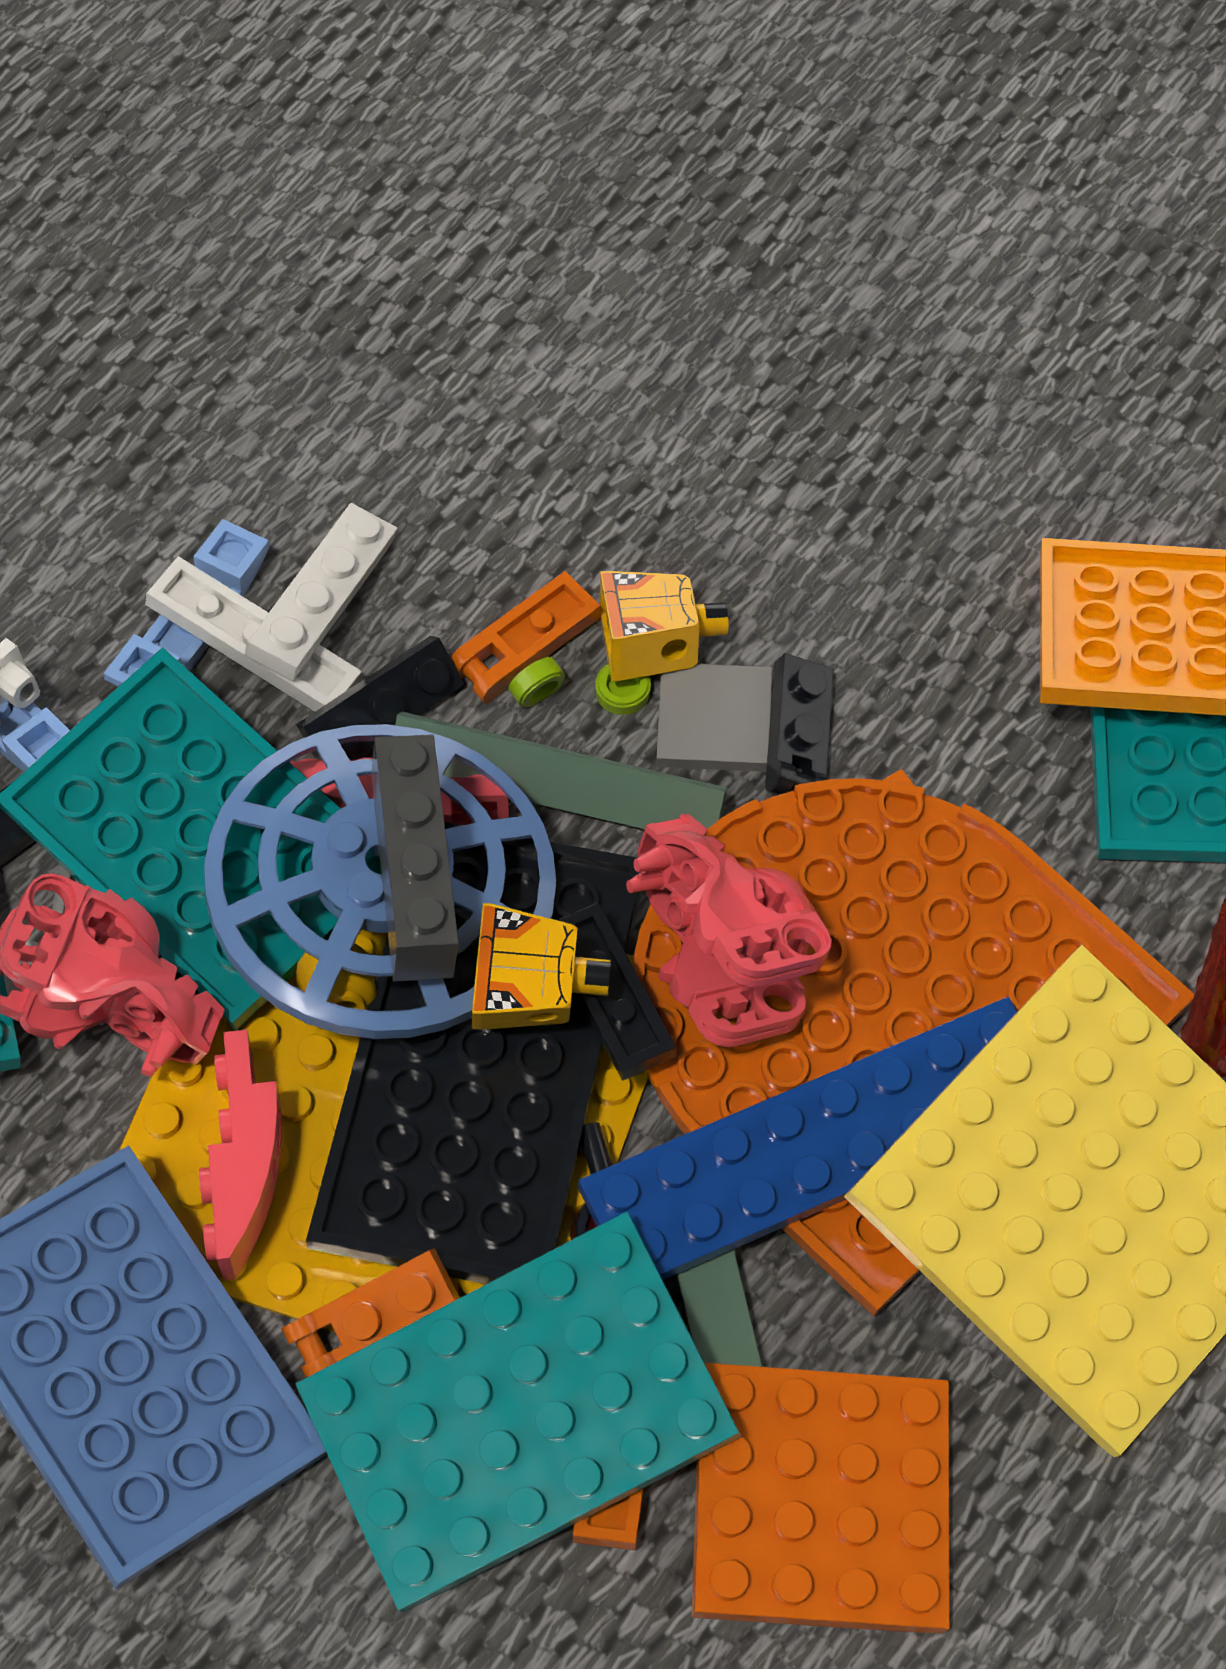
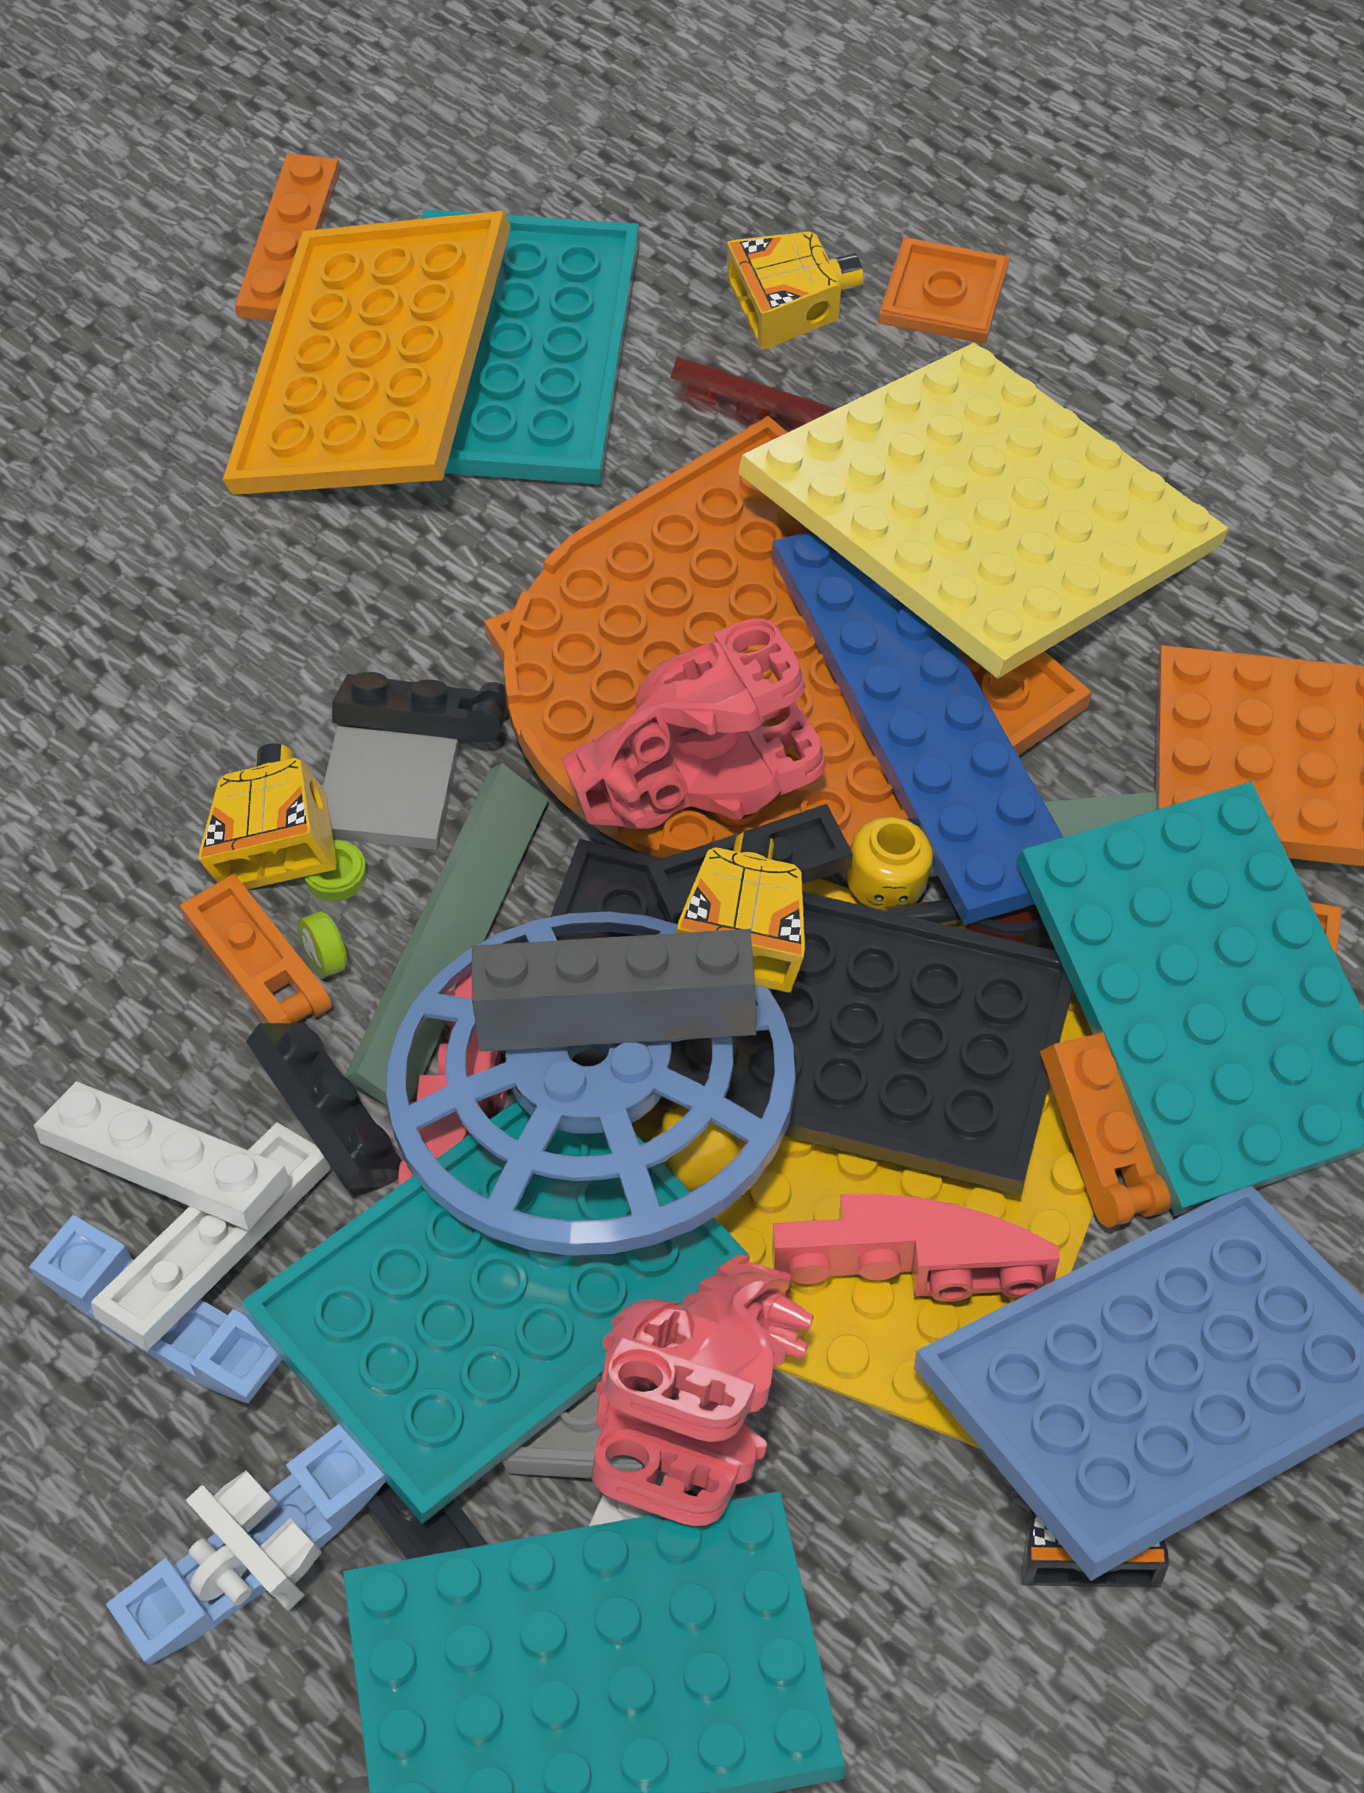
camera: 85 degrees left, 5 degrees down
(644, 1118) = (889, 863): none -> yellow head

